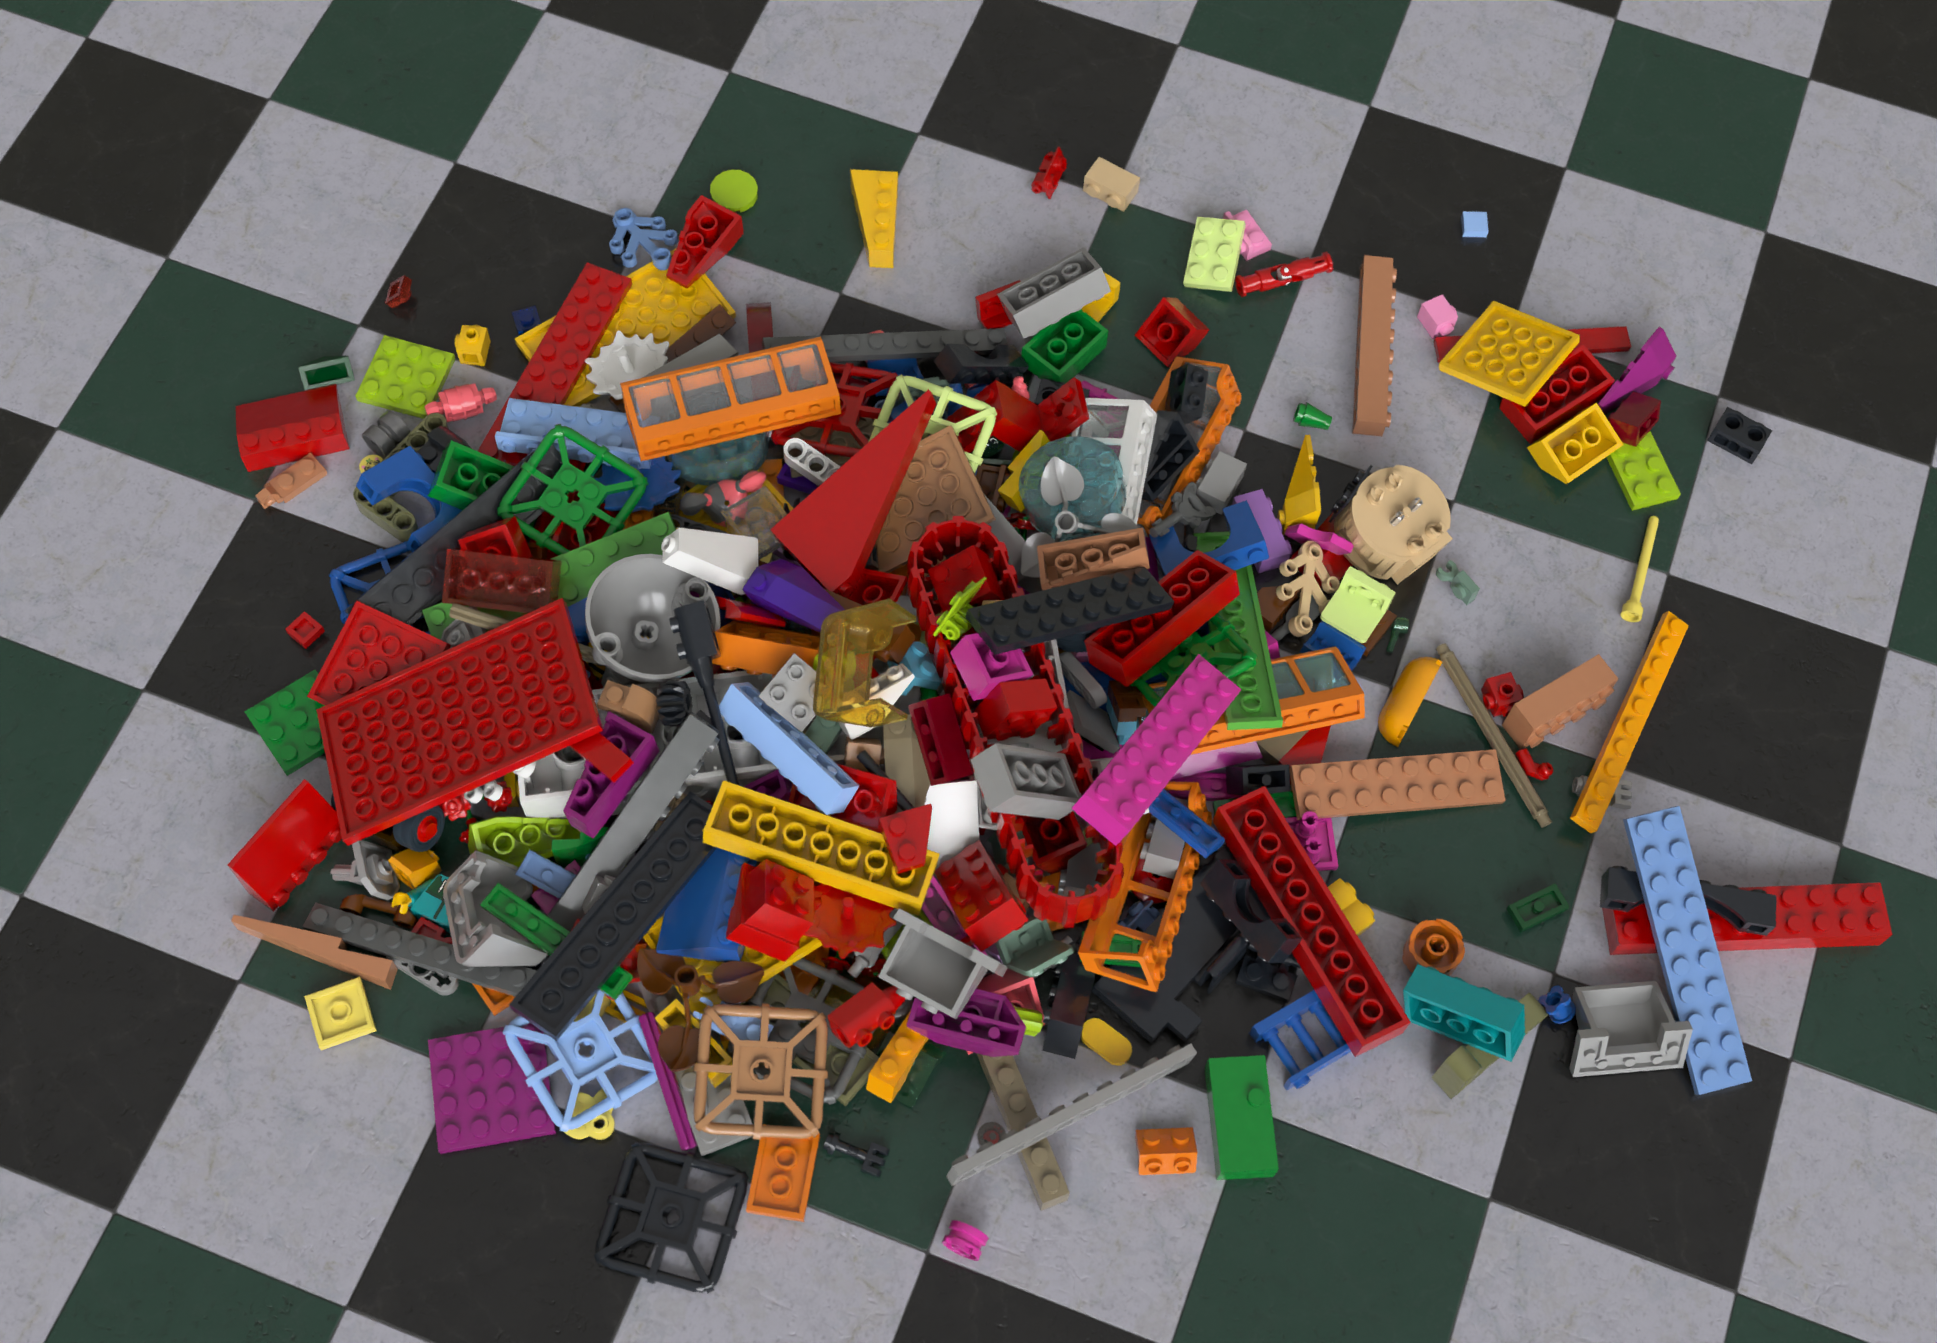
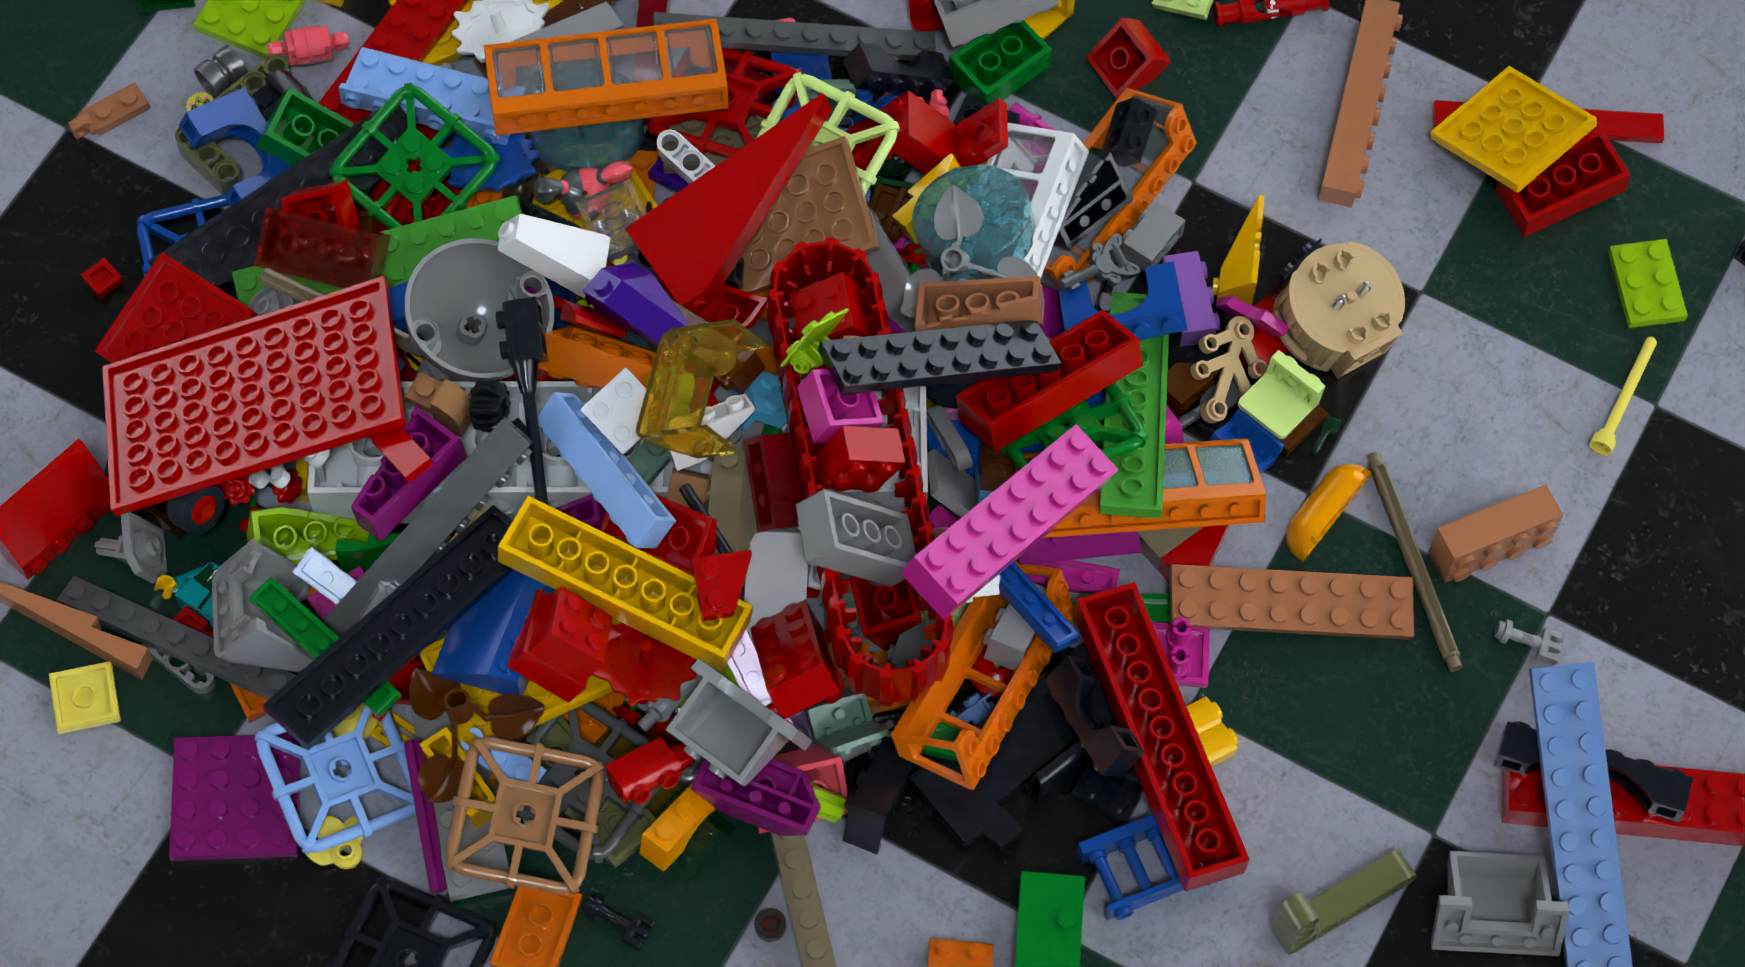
camera: 10 degrees right, 0 degrees up
(290, 428) = (117, 51): red slope -> none
(290, 724) = (72, 380): green plate -> none
(355, 903) = (118, 581): reddish brown bar -> none
(415, 867) = (186, 550): light orange slope -> none
(1064, 1116) = (851, 910): light grey plate -> none
(1106, 1041) = (914, 840): yellow tile -> none
(1248, 778) = (1148, 575): black brick -> none
(1310, 416) = (1272, 175): green cone -> none
(1437, 316) = (1441, 77): bright pink brick -> none
(1438, 935) = (1286, 778): orange brick -> none
(1461, 584) = (1410, 388): sand green plate -> none
(1464, 1012) = (1315, 859): teal brick -> none
(1501, 694) = (1428, 514): red brick -> none
(1531, 768) = (1452, 605): red arm -> none
(1537, 907) = (1427, 759): dark green plate -> none
(1558, 1005) = (1428, 868): blue brick -> none
(1576, 444) = (1574, 244): yellow slope -> none
(1629, 722) = (1573, 566): light orange plate -> none
(1635, 418) = (1648, 222): dark red brick -> none
(1644, 373) = (1676, 168): magenta wedge -> none

